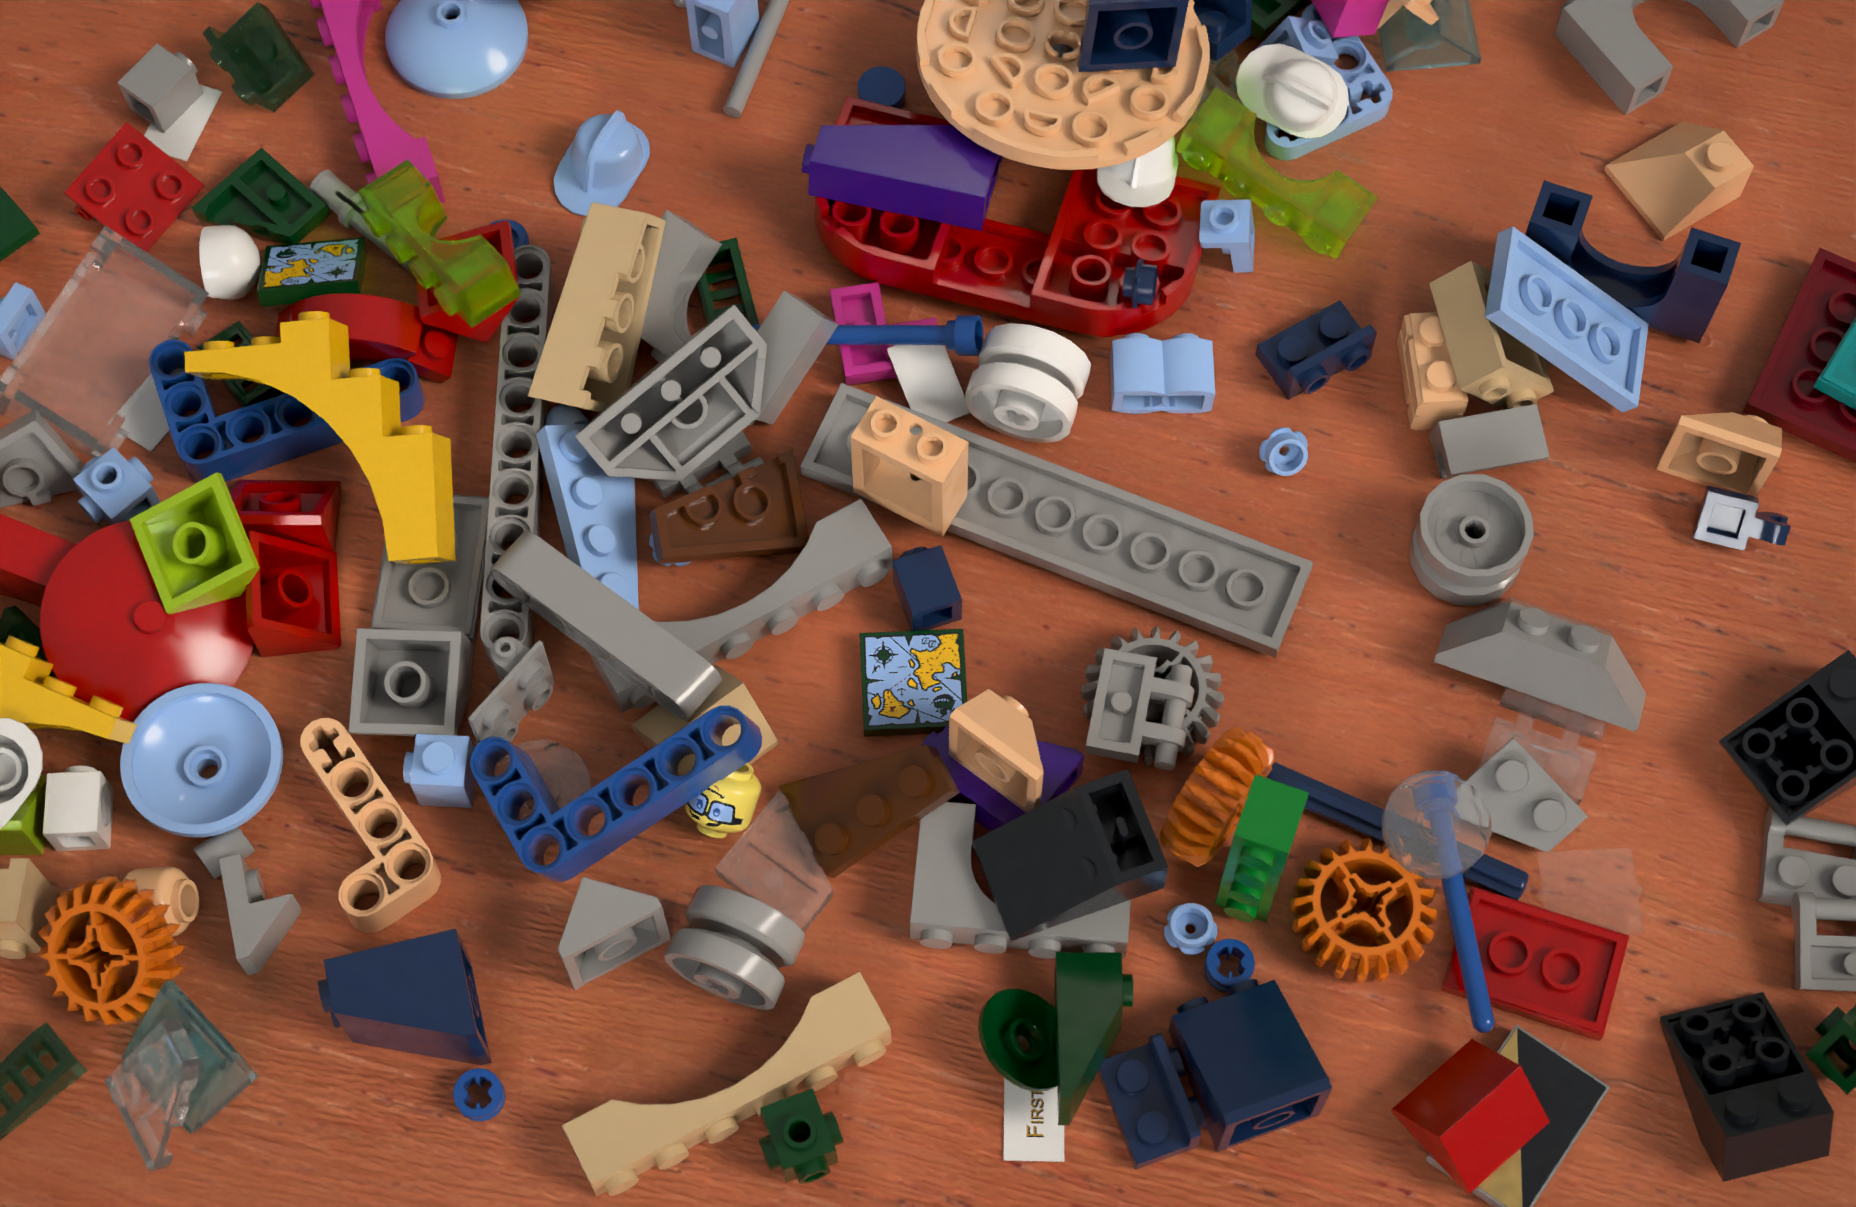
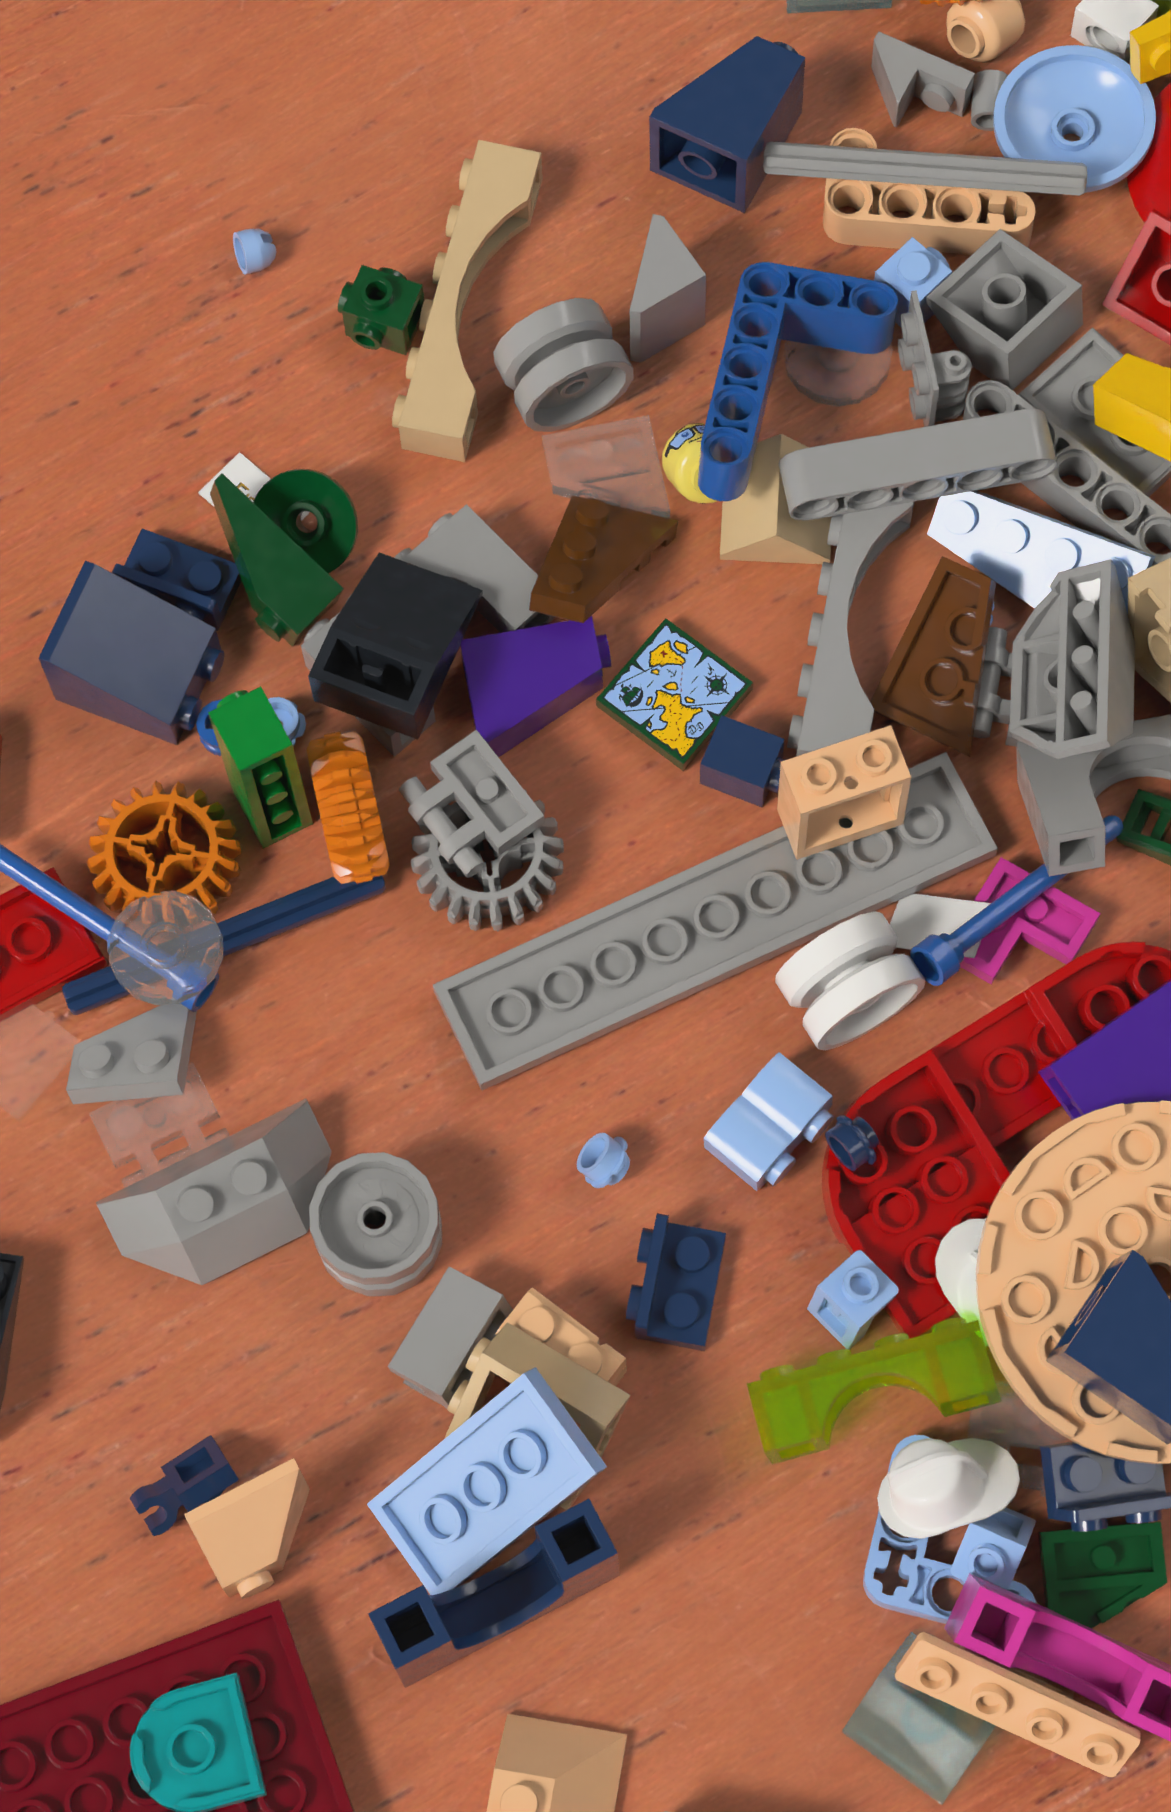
camera: 135 degrees right, 5 degrees up
(340, 816) = (925, 168): none -> light grey axle
(462, 1097) = (616, 148): blue bush -> none
(998, 746) = (528, 656): light nougat slope -> none

